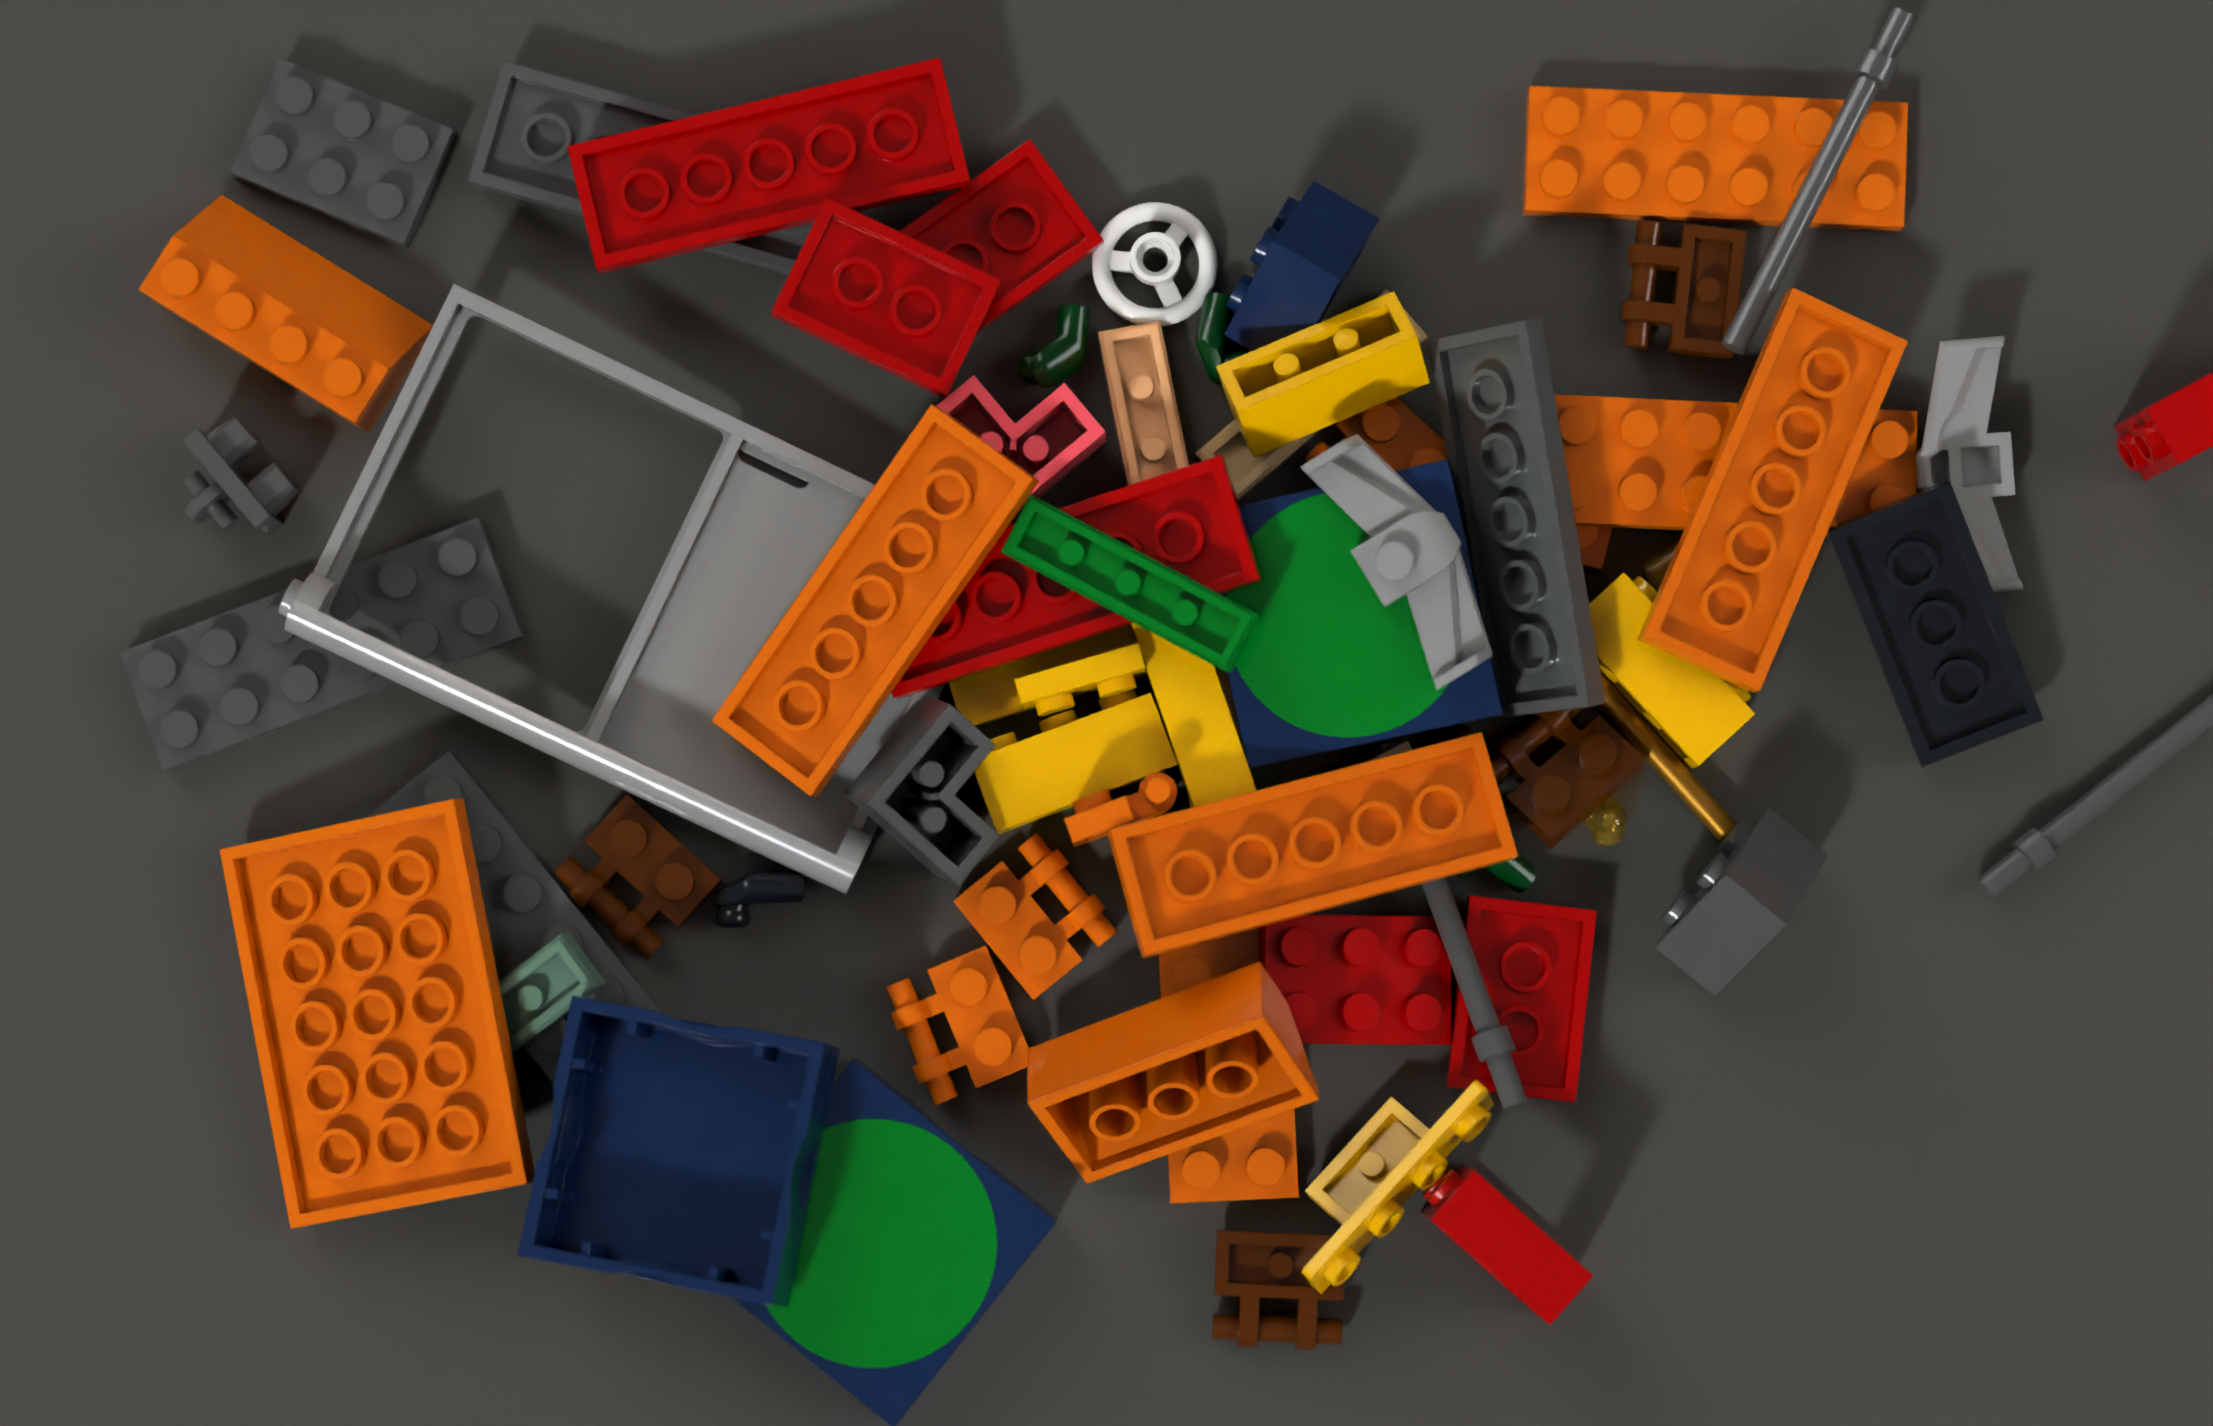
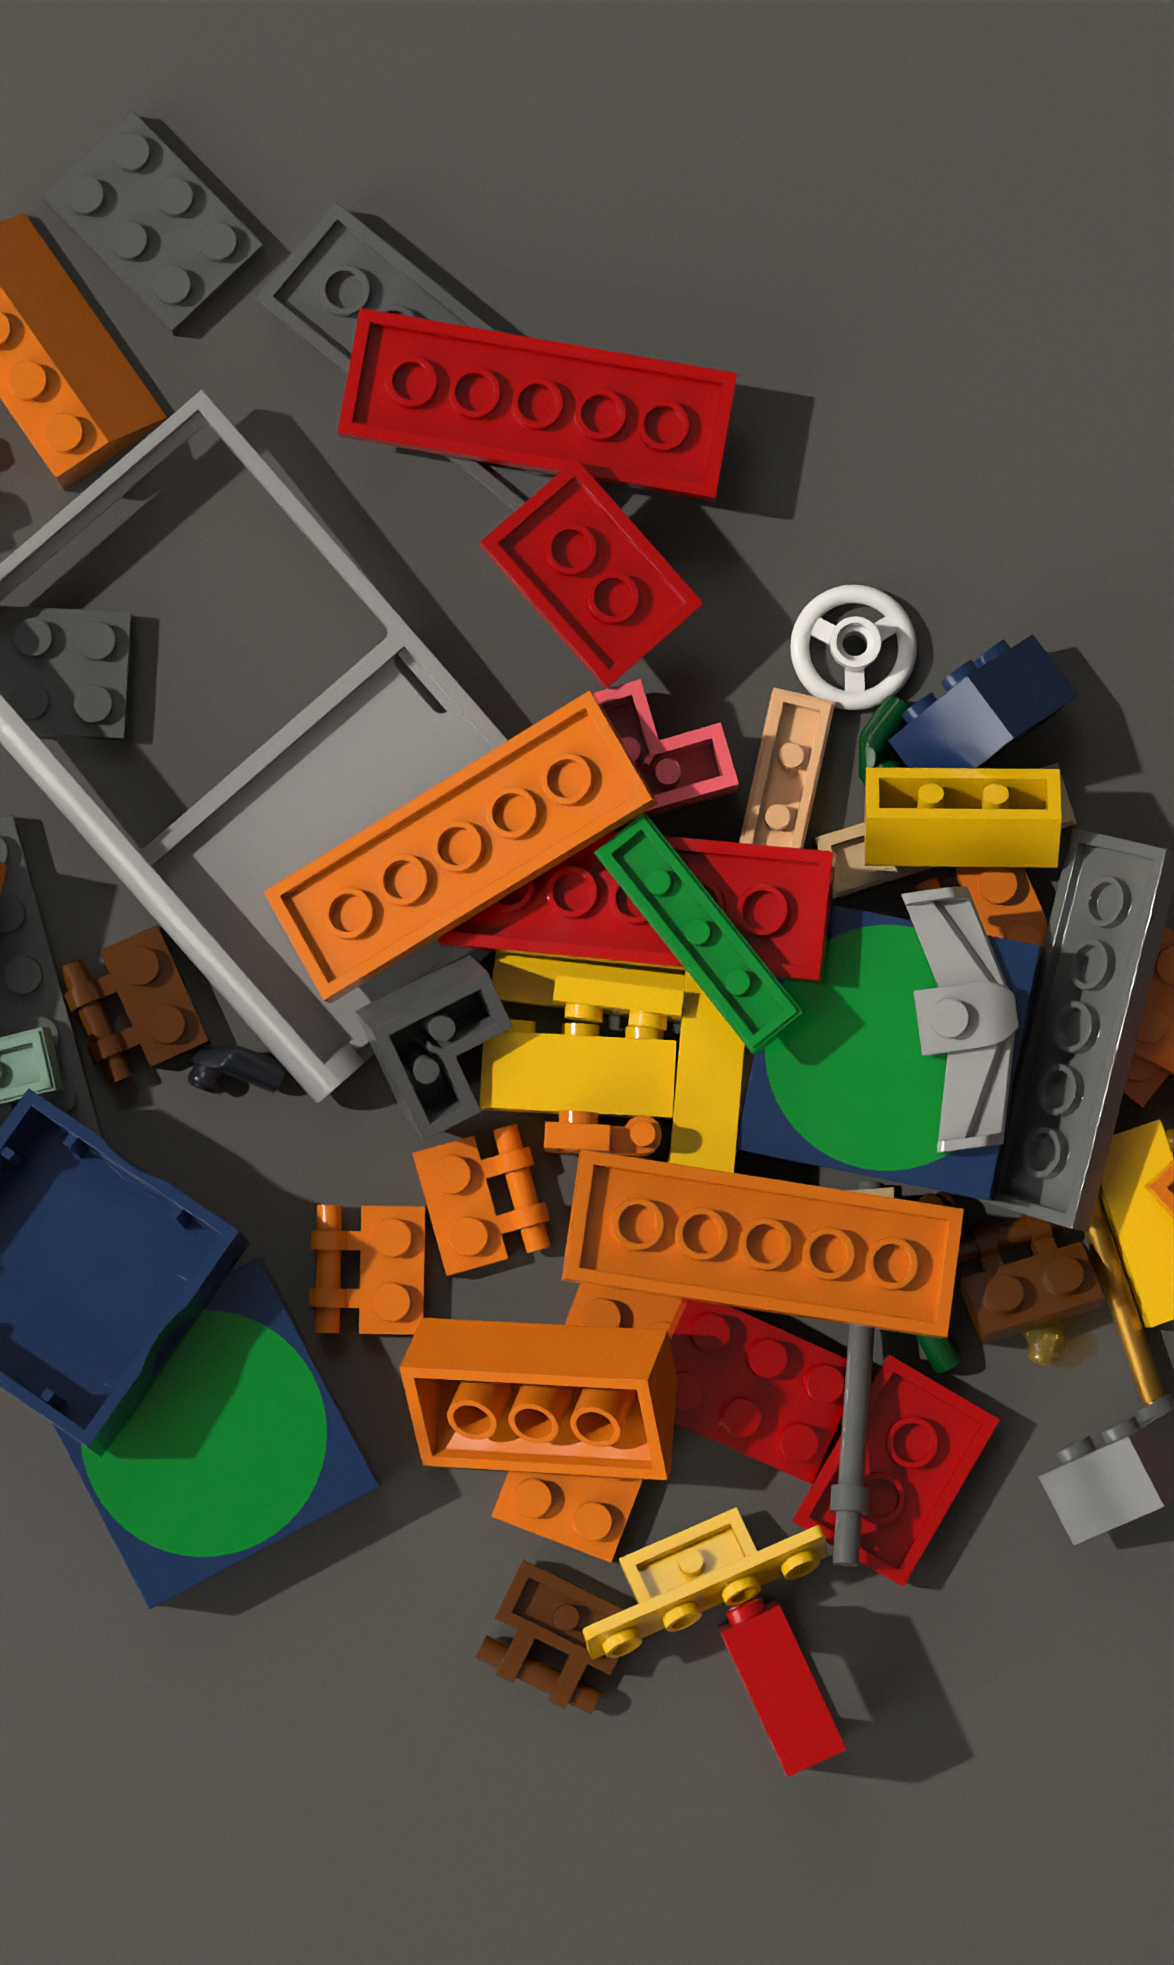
camera: 25 degrees right, 0 degrees up
(1013, 226) = (735, 556): red plate -> none
(1063, 354) = (731, 694): dark green arm -> none

